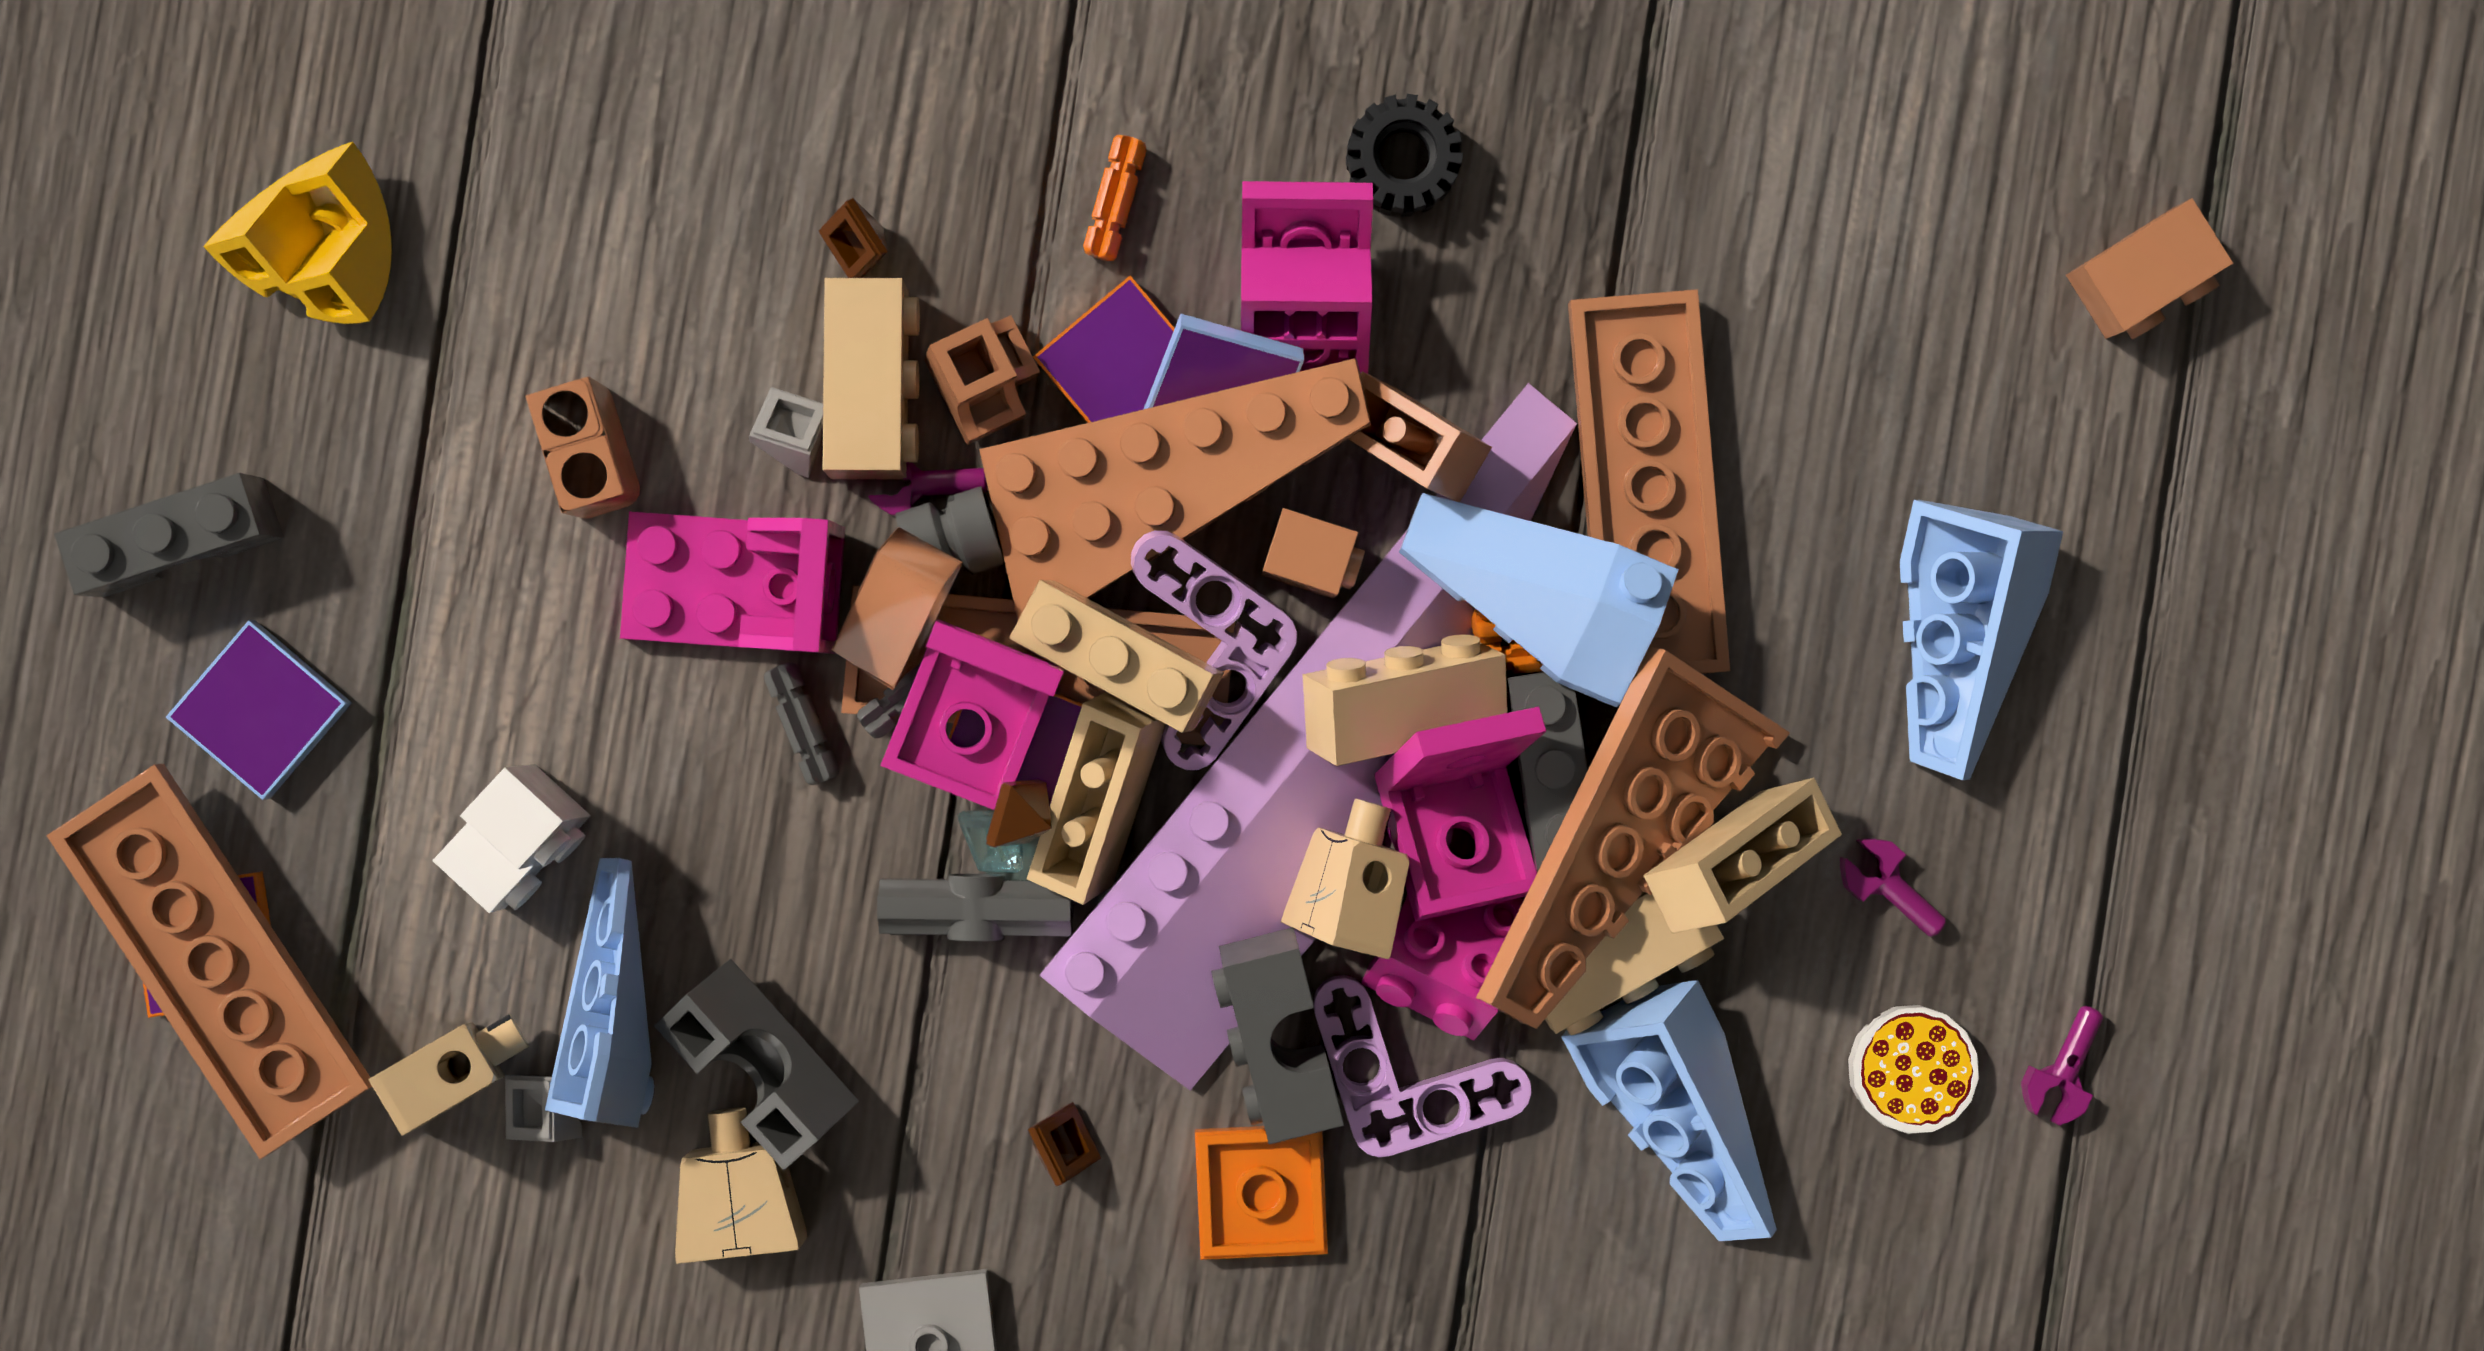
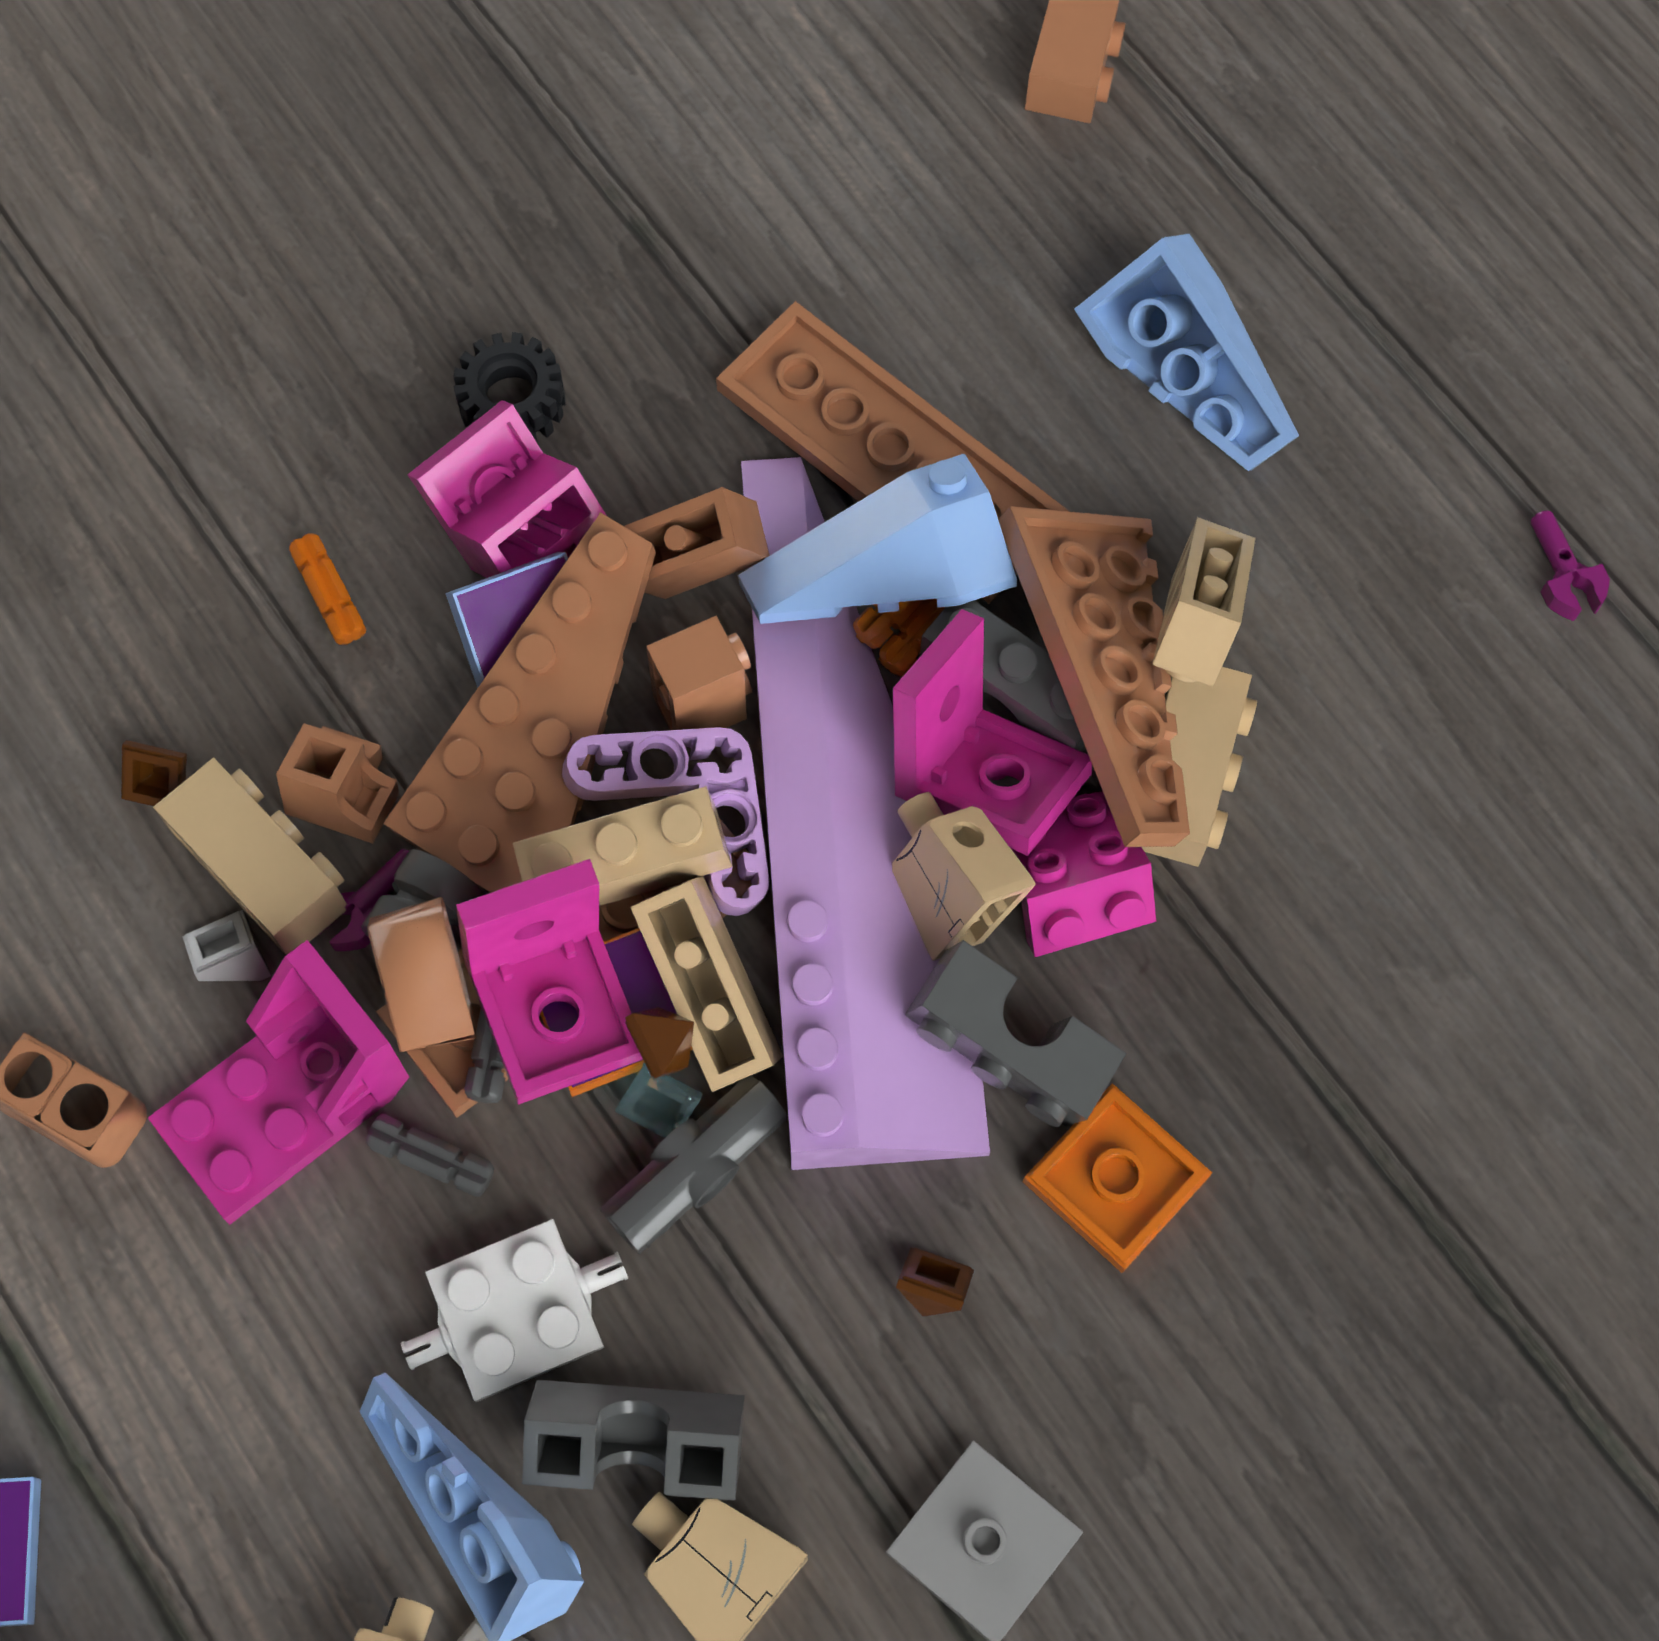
camera: 45 degrees left, 20 degrees down
(510, 836) = (269, 1447): white brick -> none
(762, 890) = (514, 1310): none -> white plate
(1109, 354) = (419, 689): dark purple tile -> none
(1378, 704) = (853, 725): tan brick -> none
(1383, 1092) = (1131, 1015): lavender beam -> none
(1678, 1089) = (1332, 820): light blue wedge -> none
(1891, 885) = (1319, 557): magenta bar -> none
(1913, 1069) = (1470, 659): tile -> none

